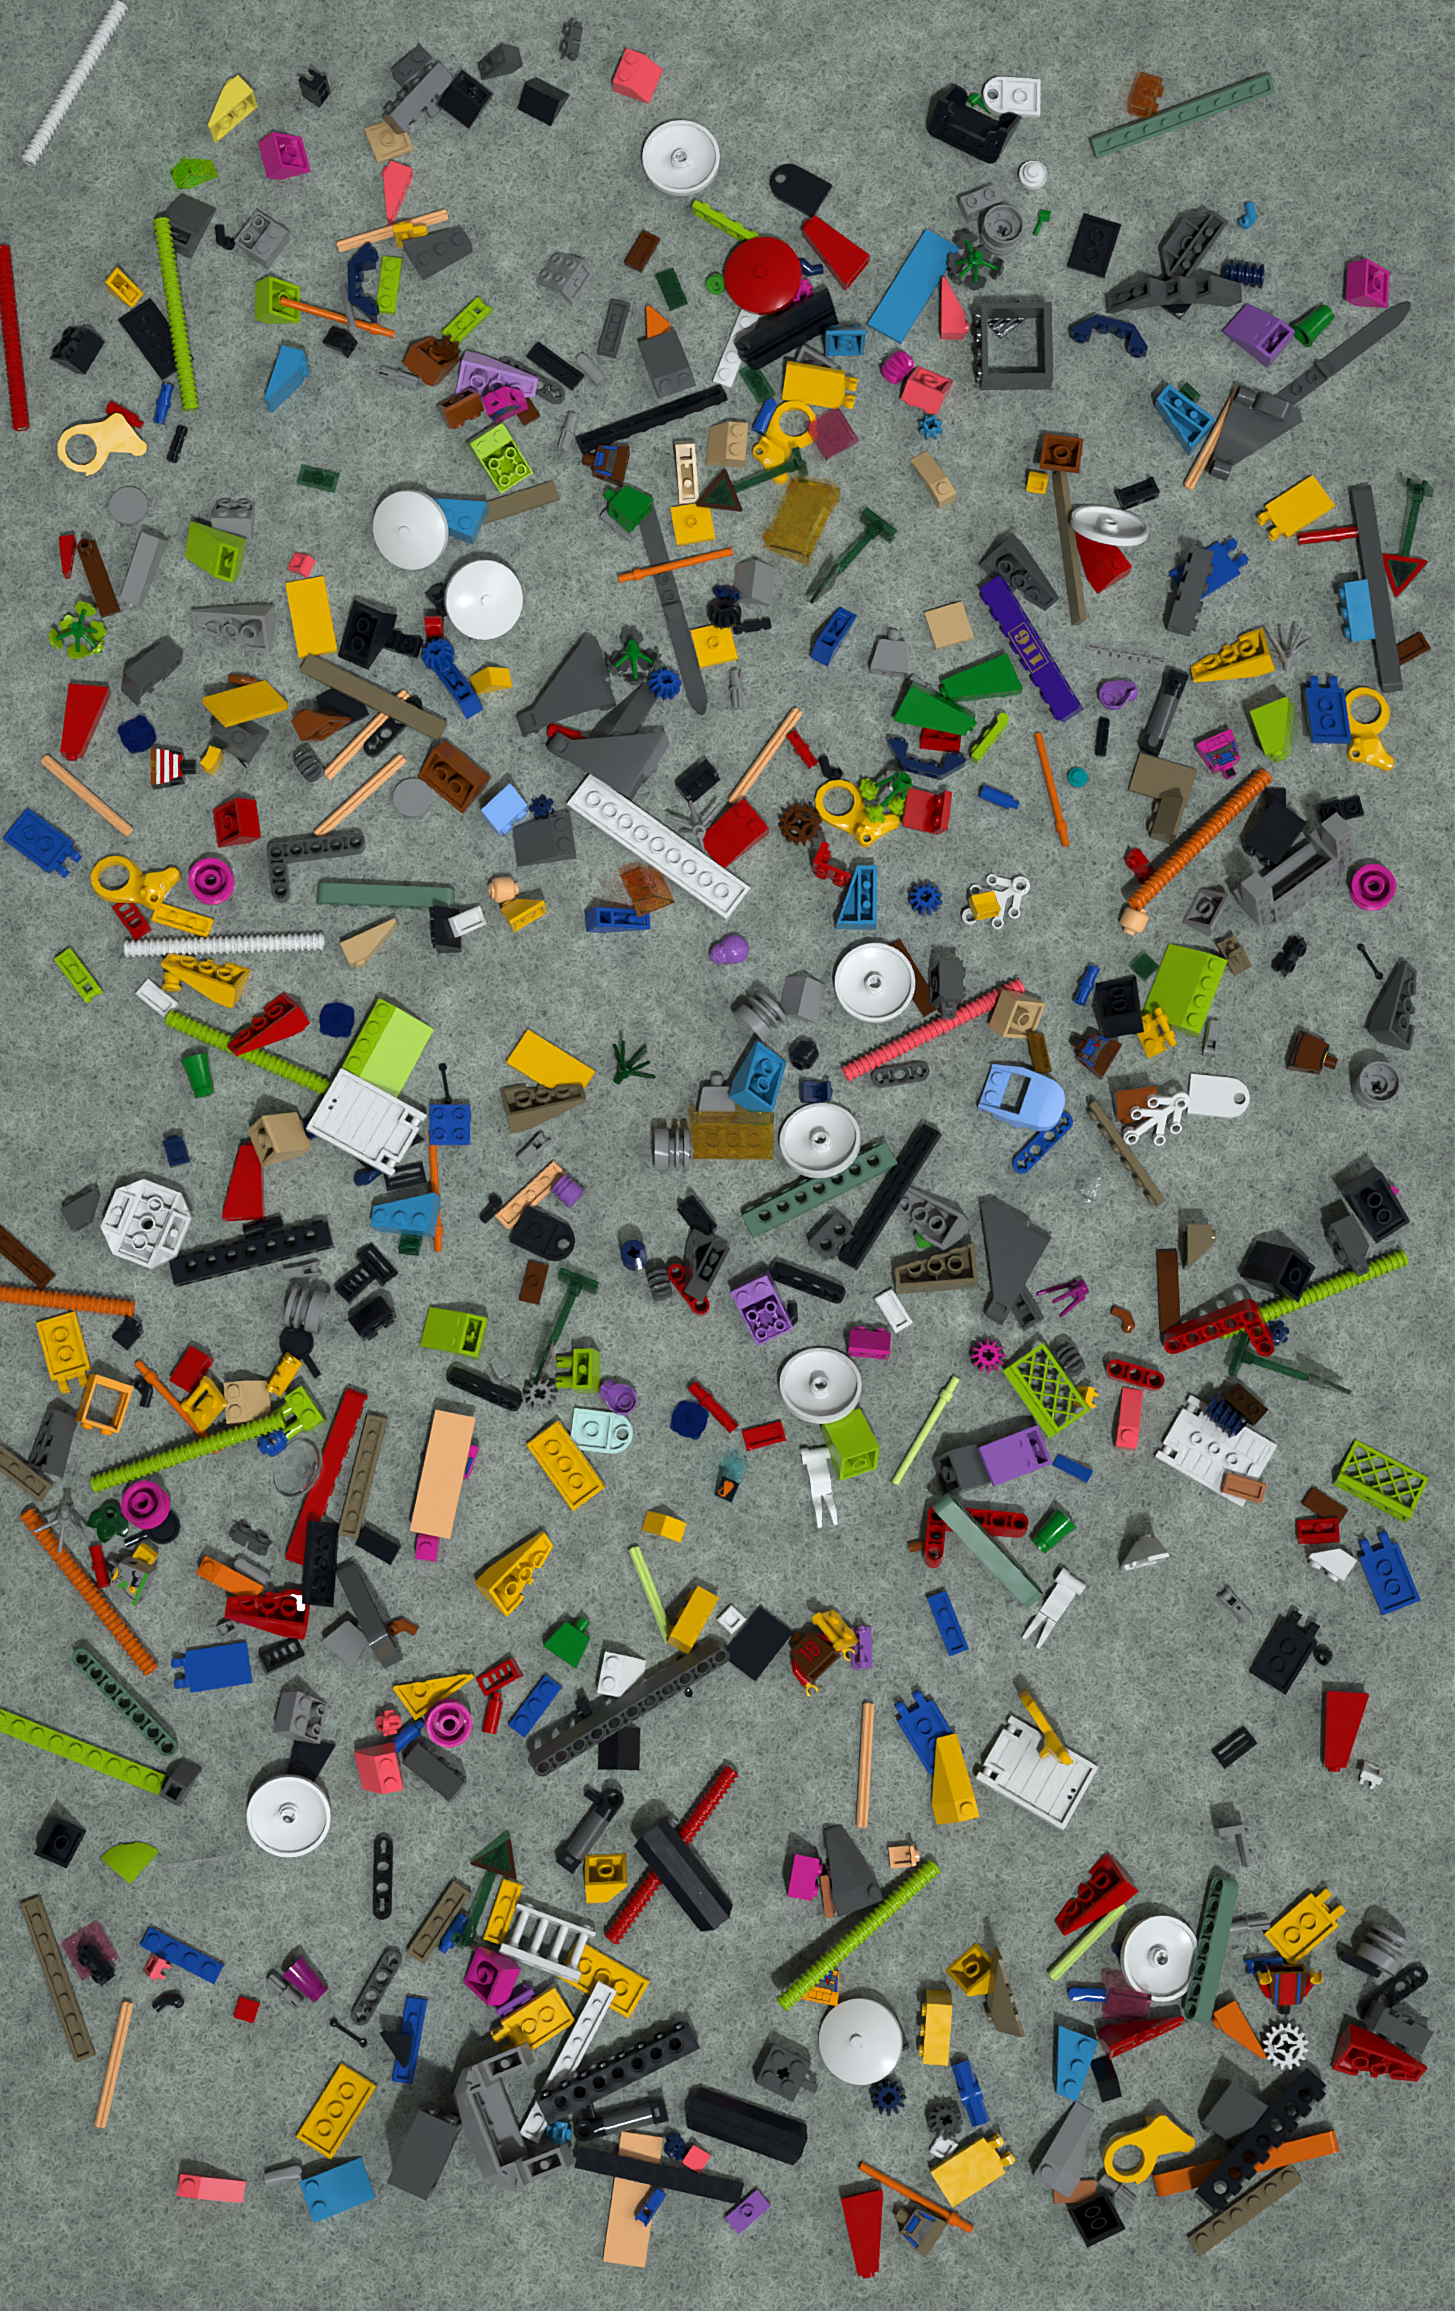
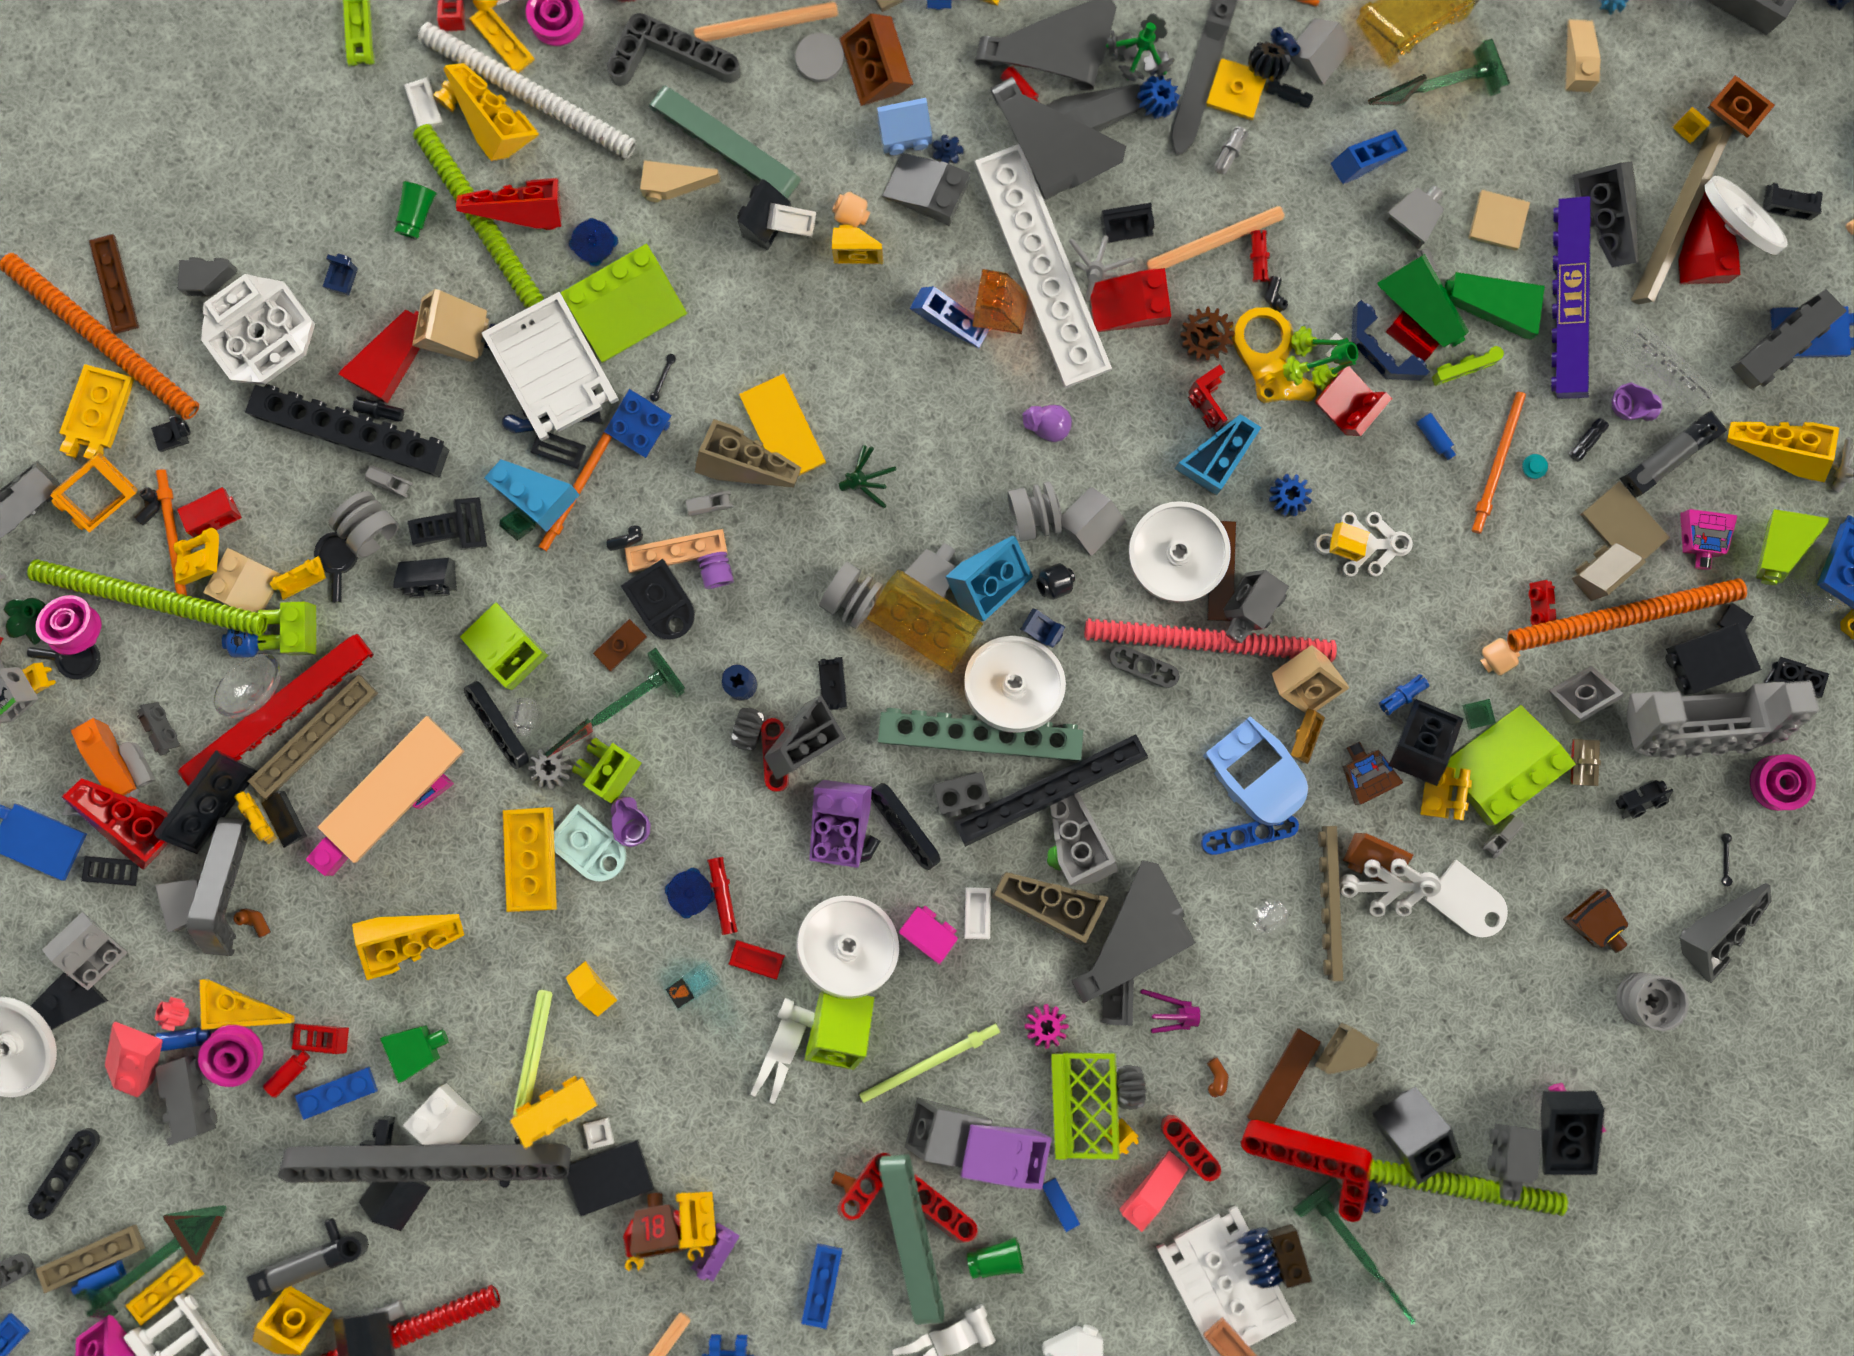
camera: 30 degrees right, 5 degrees up
(368, 1557) = (258, 823): none -> yellow plate

